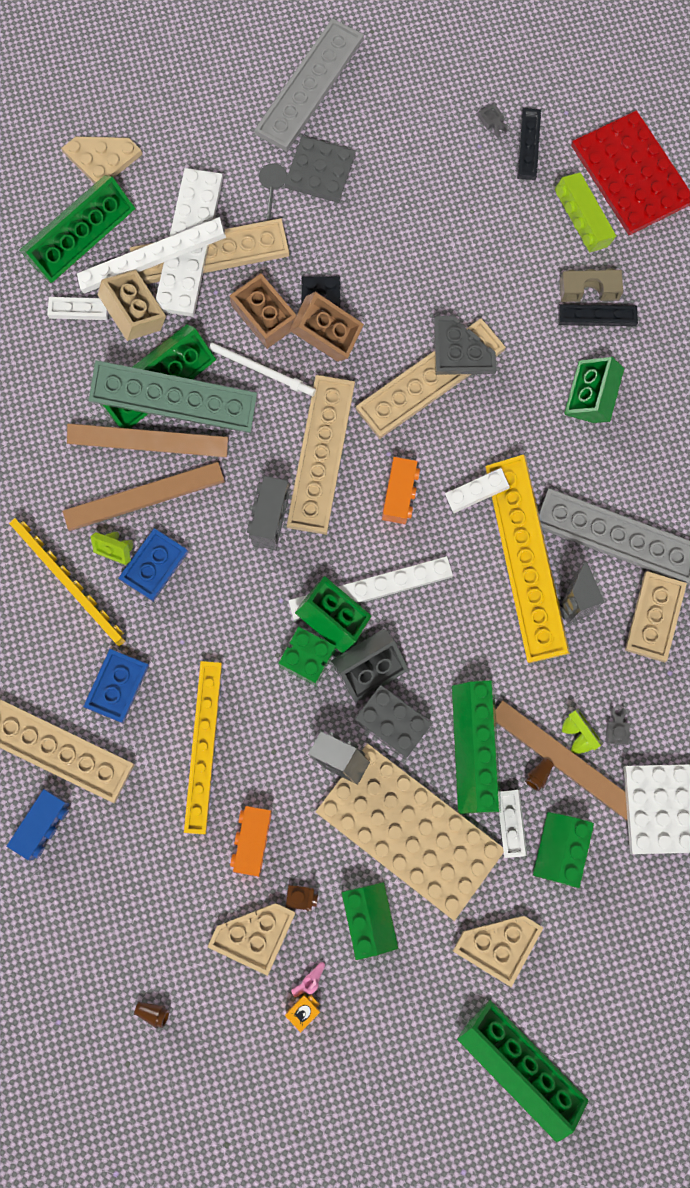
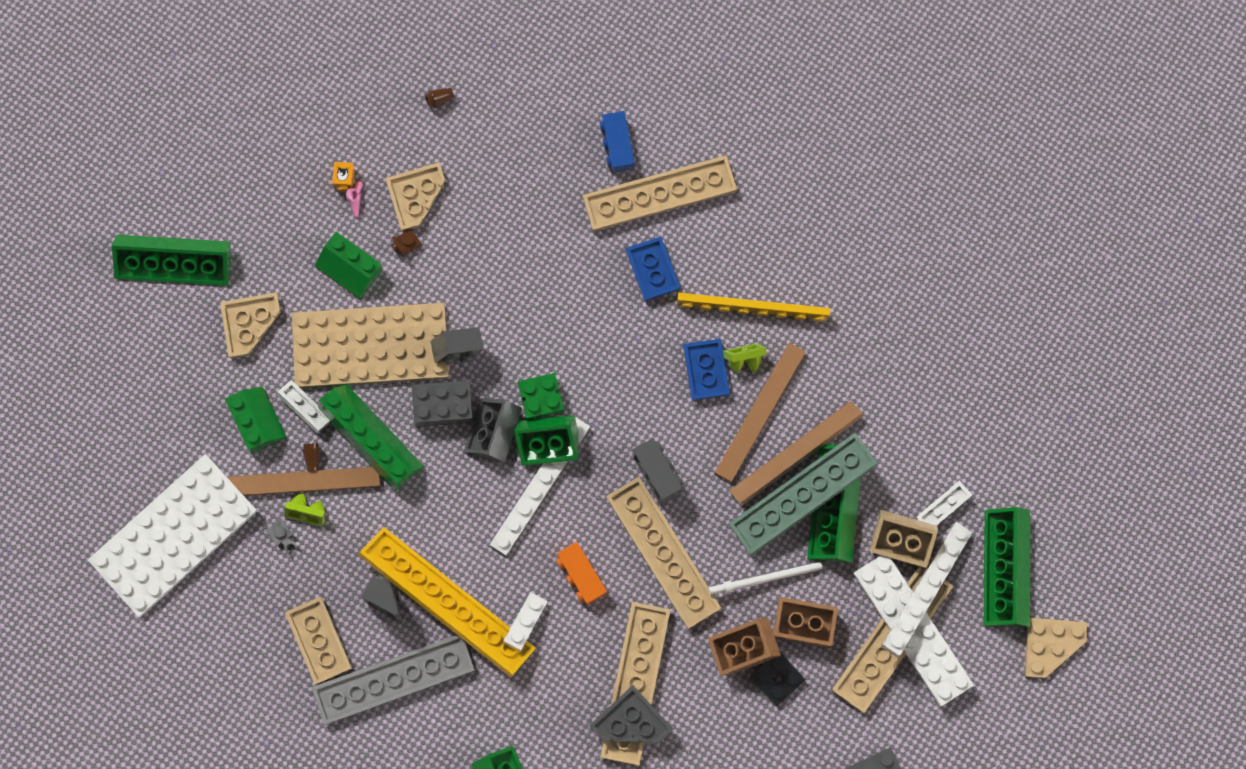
camera: 135 degrees right, 0 degrees up
(203, 748) = (557, 280): yellow plate -> none
(251, 841) = (469, 248): orange brick -> none
(272, 177) = (906, 747): dark grey piece -> none

